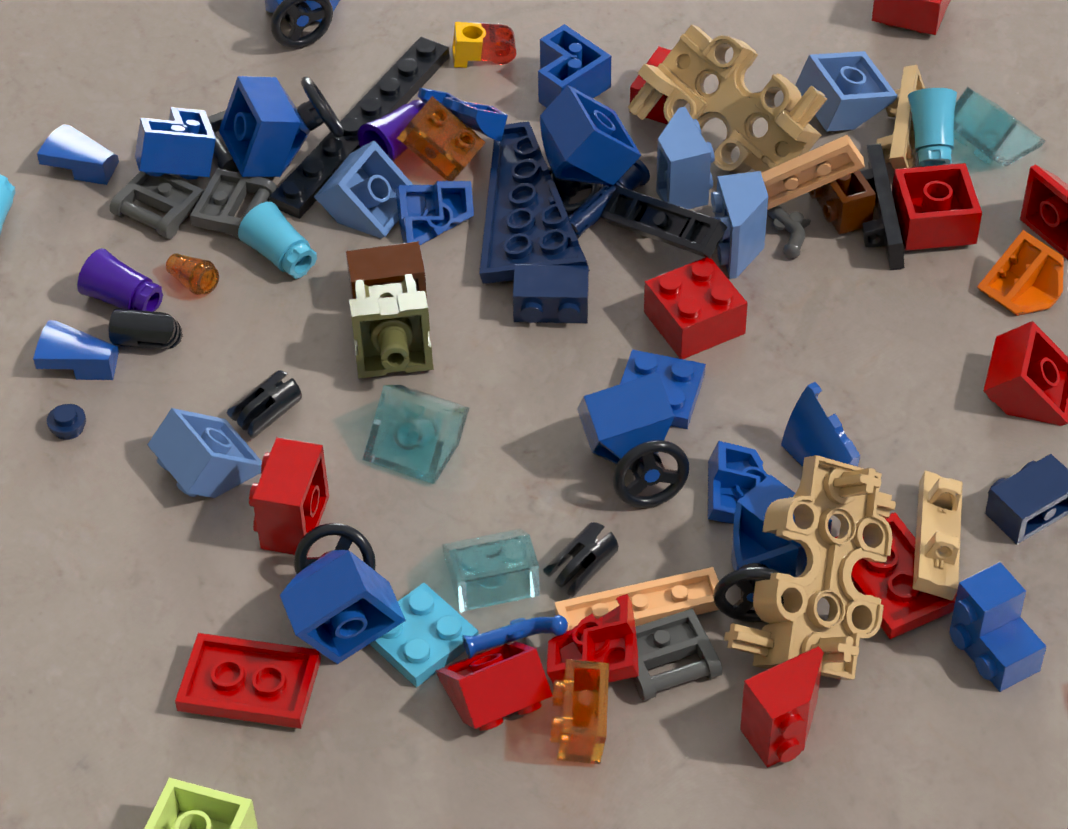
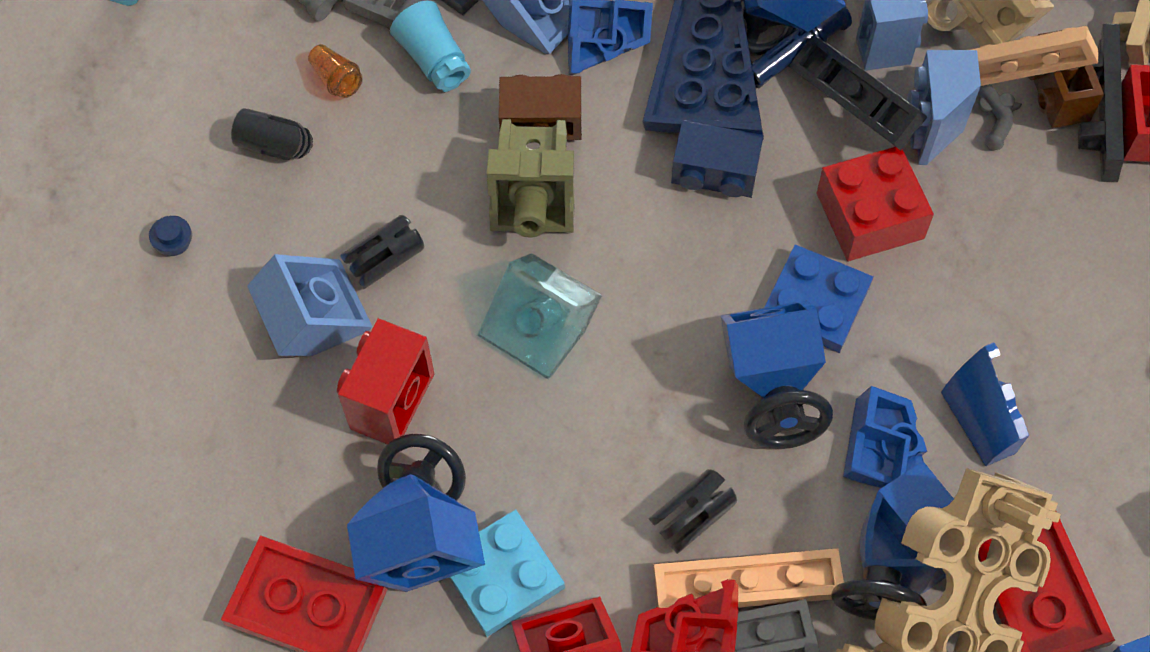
camera: 10 degrees right, 15 degrees up
(72, 349) = (194, 148): blue slope -> none
(117, 284) = (252, 75): dark purple plant -> none
(492, 569) = (593, 501): clear light blue slope -> none
(517, 629) = (608, 592): blue piece -> none
(938, 536) = (1101, 553): tan hinge -> none

